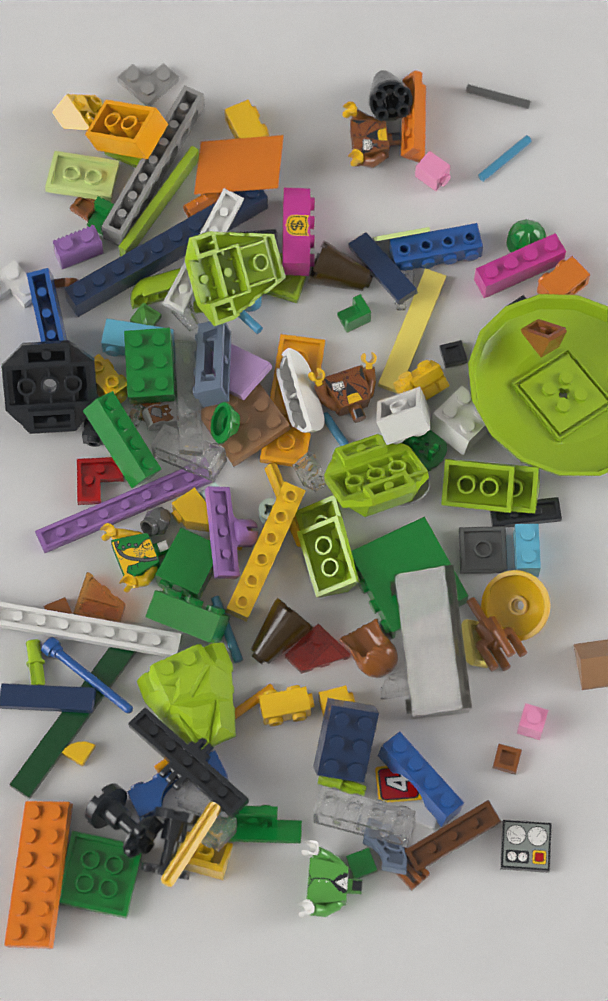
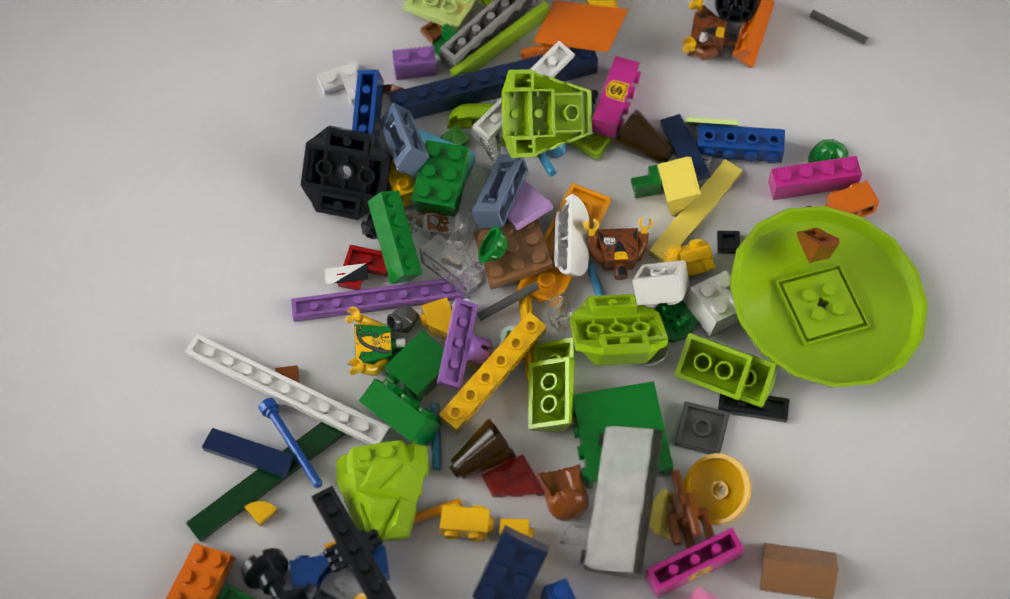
camera: 20 degrees right, 5 degrees down
(35, 662) = (249, 417): lime axle -> none
(83, 490) = (346, 273): none -> sticker
(98, 335) = (402, 140): none -> sand blue brick
(98, 601) = (325, 377): clear orange wing -> none
(256, 473) = (529, 289): none -> dark grey bar
(389, 308) = (679, 183): none -> light yellow slope
(433, 171) = (758, 75): bright pink brick -> none
(503, 159) = (829, 81): dark azure bar -> none
(514, 682) = (694, 563): none -> dark pink brick
(527, 548) = (744, 438): medium azure brick -> none

